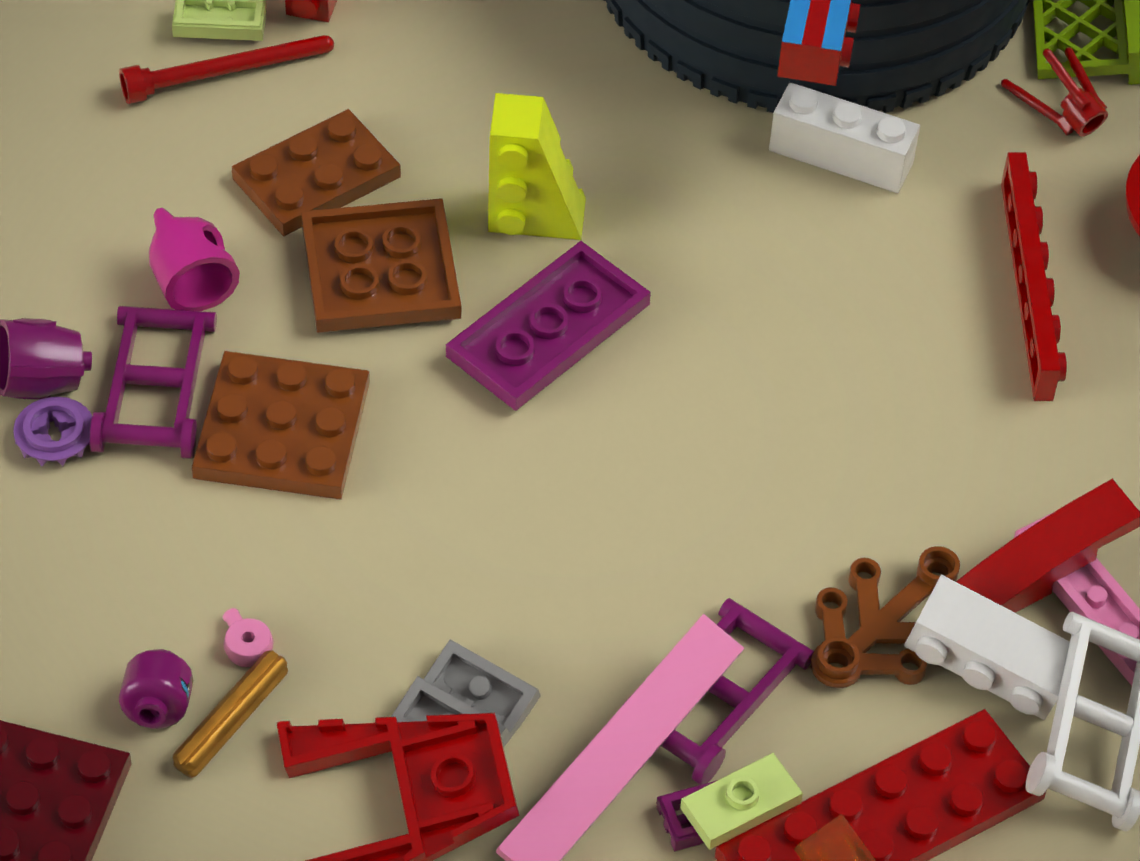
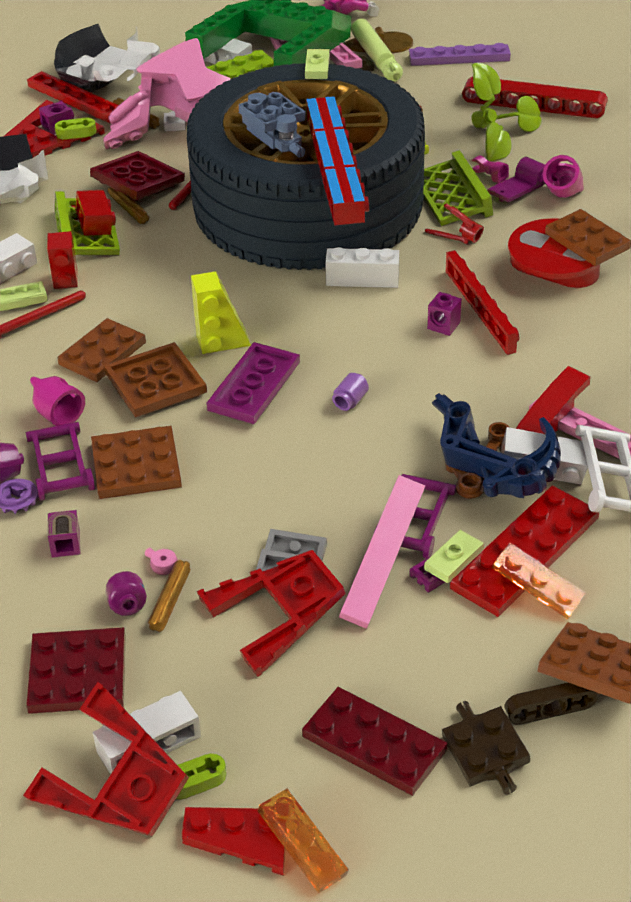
camera: 15 degrees left, 10 degrees down
(101, 535) = (64, 533): none -> magenta brick
(709, 397) = (350, 391): none -> medium lavender brick
(845, 591) = (501, 472): none -> dark blue piece
(949, 283) = (444, 313): none -> magenta brick

